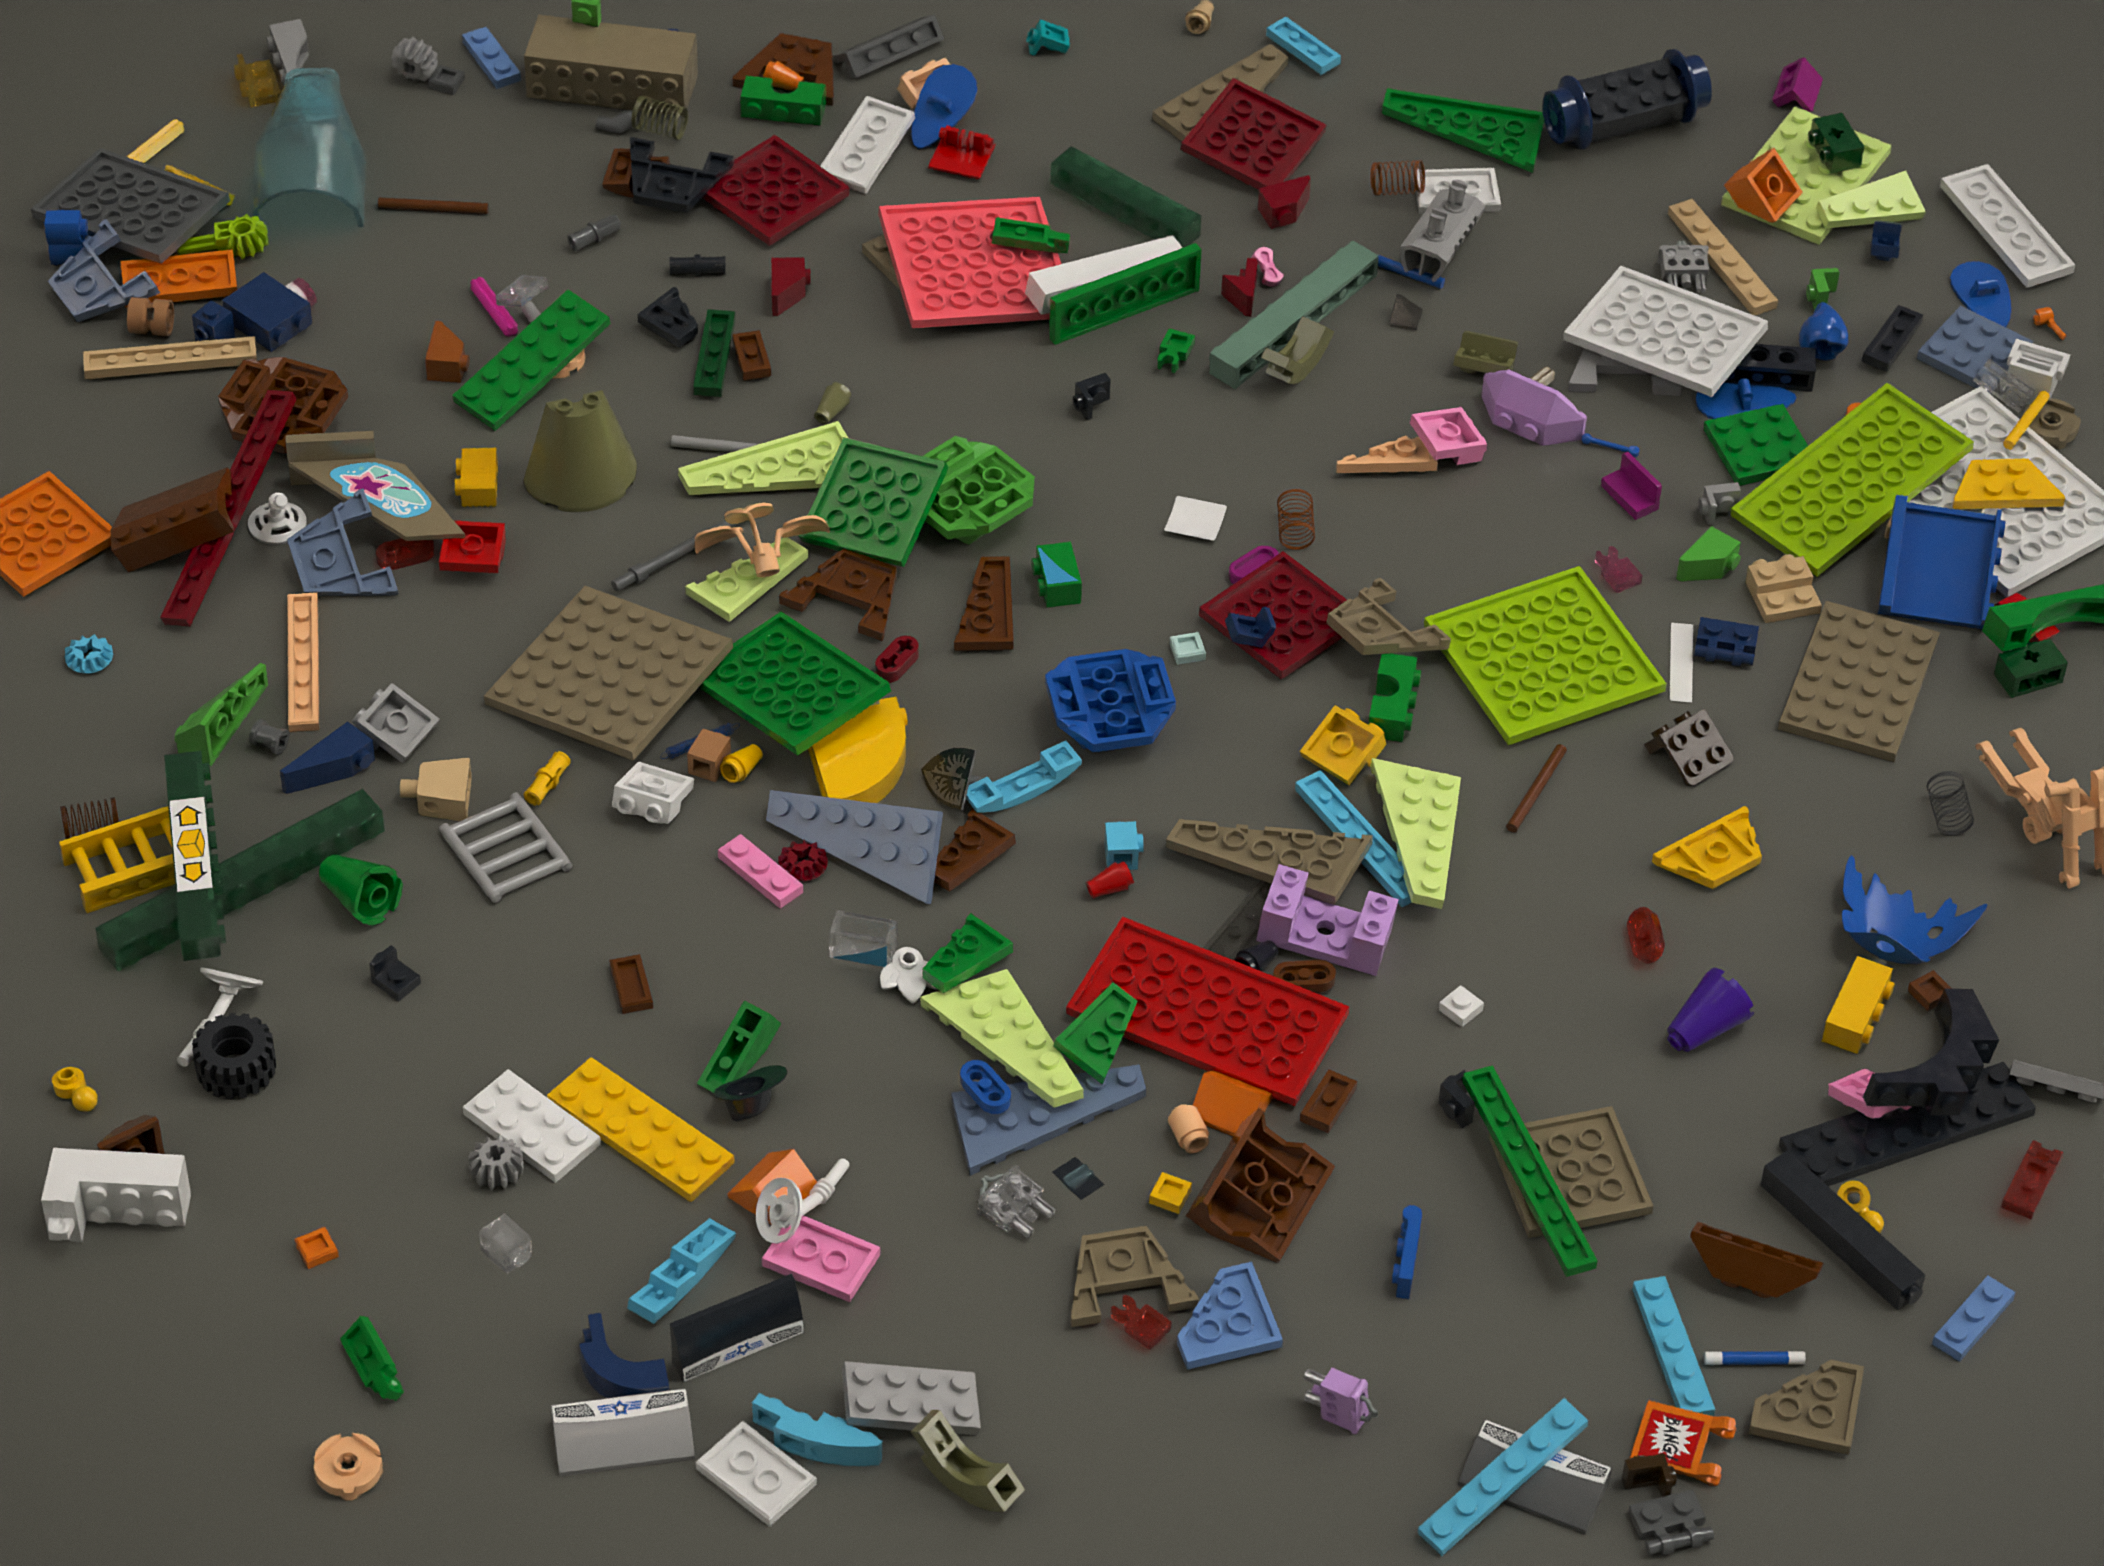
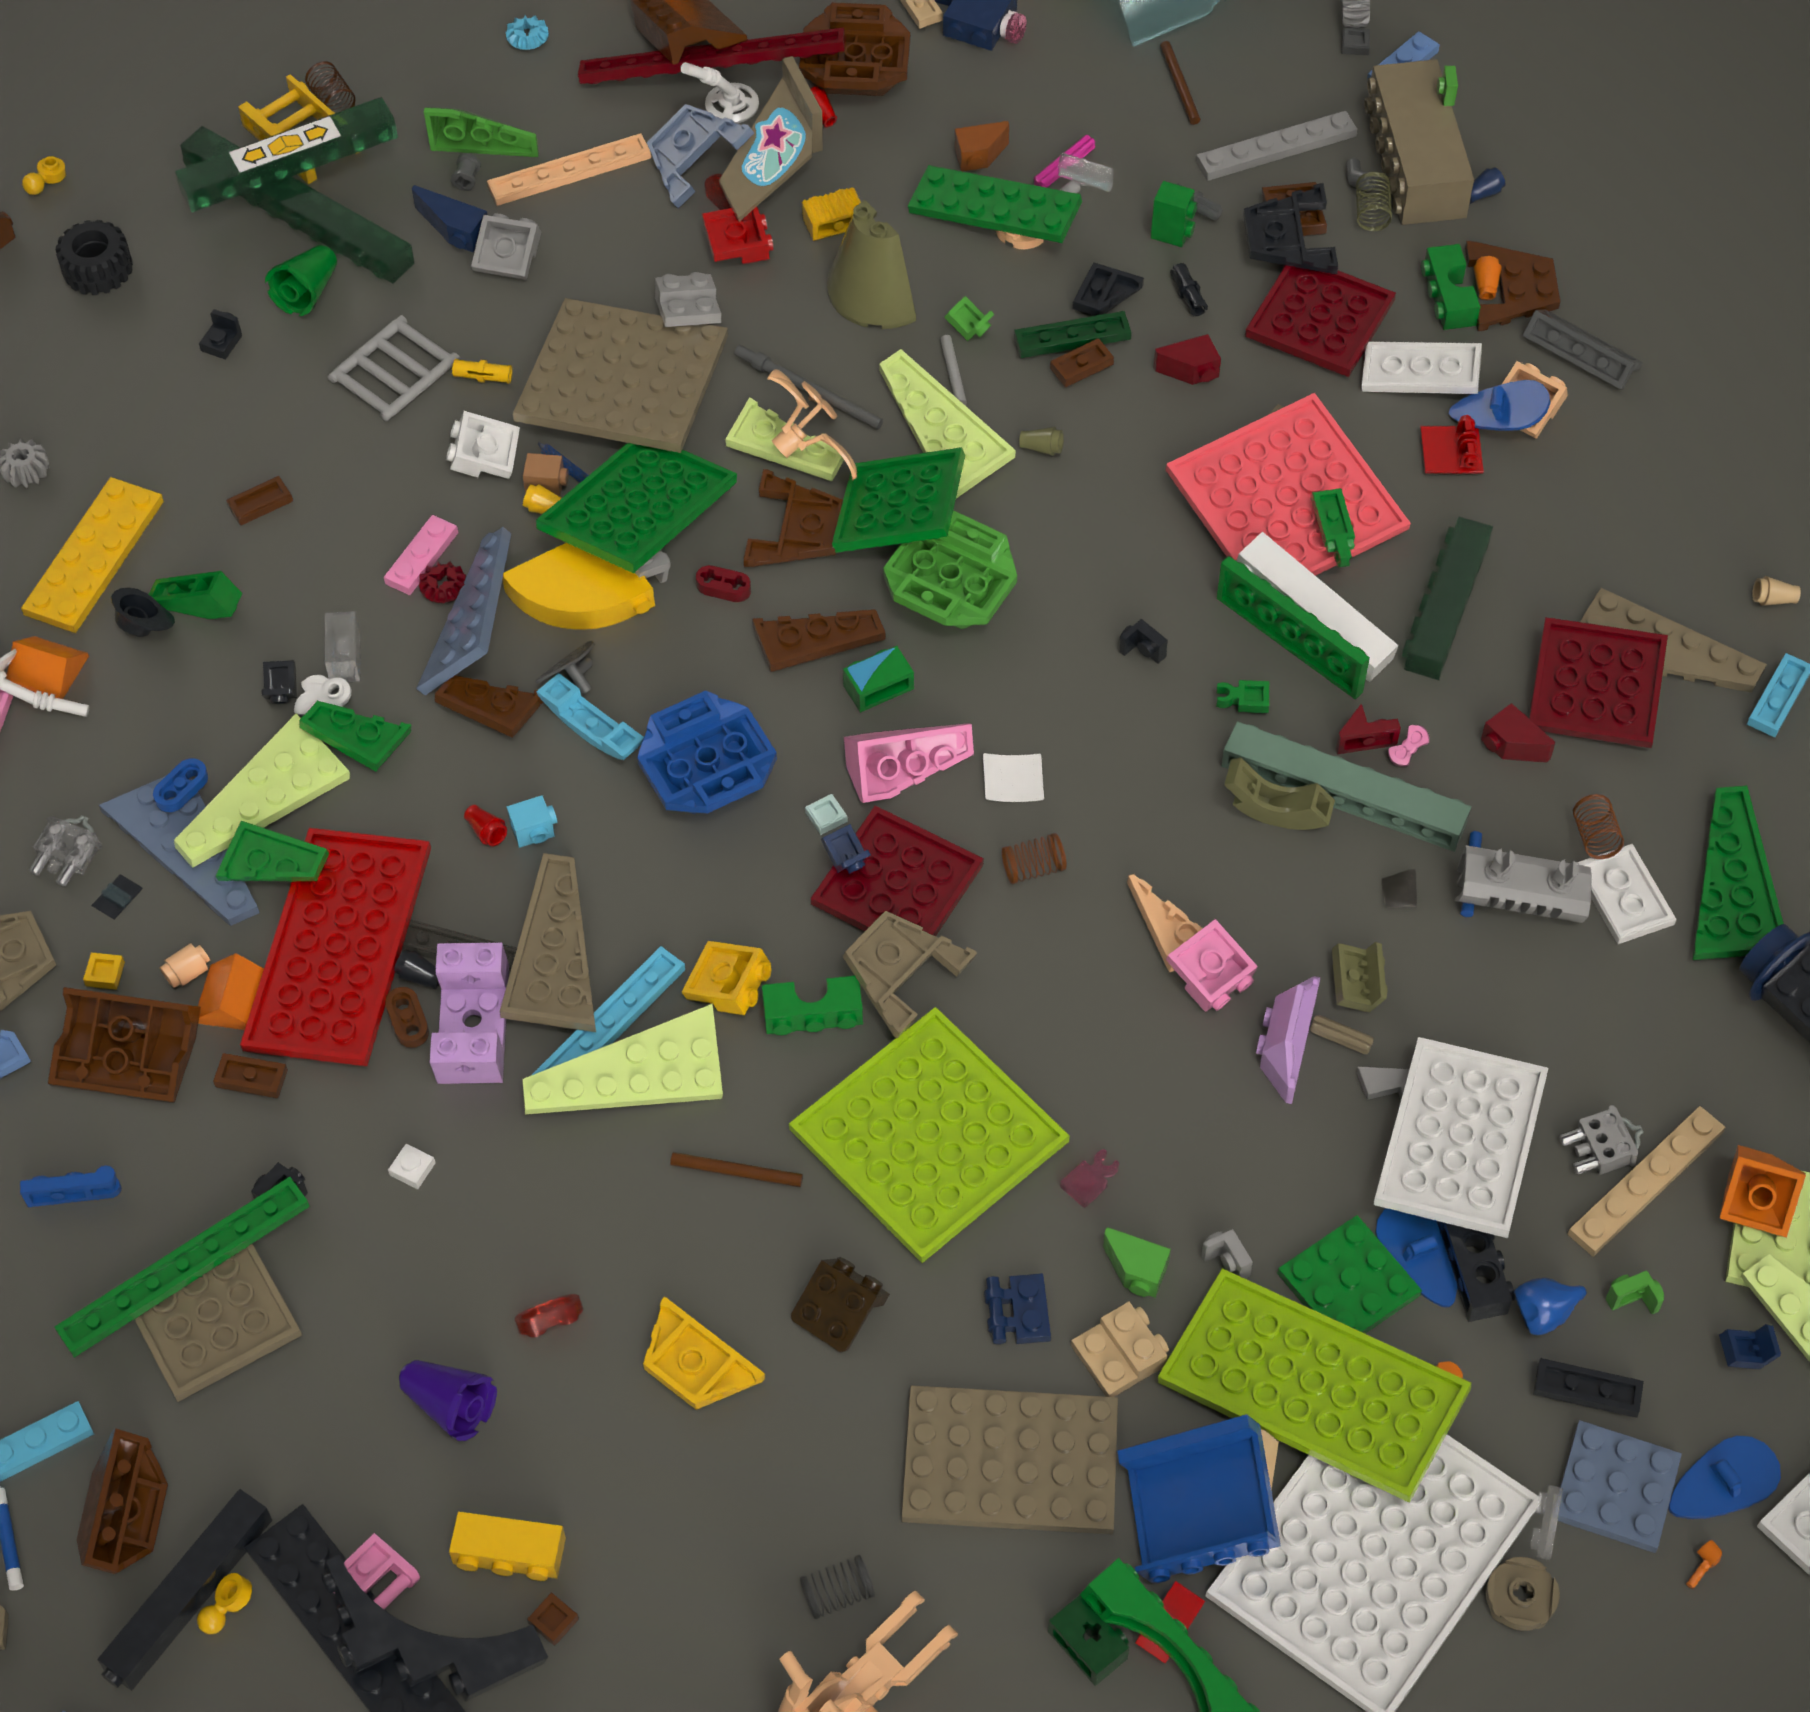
camera: 75 degrees right, 10 degrees up
(229, 986) = (171, 230): white dish -> none
(441, 789) = (441, 303): tan torso -> none
(539, 602) = (687, 299): none -> light grey plate
(542, 1130) = (78, 477): white plate -> none
(549, 165) = (1276, 145): none -> light grey plate
(614, 242) = (1173, 214): none -> green brick
(664, 416) = (968, 319): none -> bright green bracket
(878, 1001) = (279, 681): none -> black bracket
(1048, 35) = (1665, 471): teal bracket -> none
(1148, 583) = (894, 760): none -> bright pink wedge
(1250, 562) = (966, 838): magenta tile -> none
(1587, 439) = (1285, 1155): blue hinge -> none
(1633, 487) = (1215, 1165): magenta panel -> none
(1681, 662) = (976, 1272): white sticker -> none
(1900, 930) = (651, 1572): blue piece -> none
(2006, 485) = (1374, 1553): yellow wing -> none
(2026, 420) = (1500, 1559): yellow bar -> none
(2037, 366) = (1591, 1553): white plate -> none

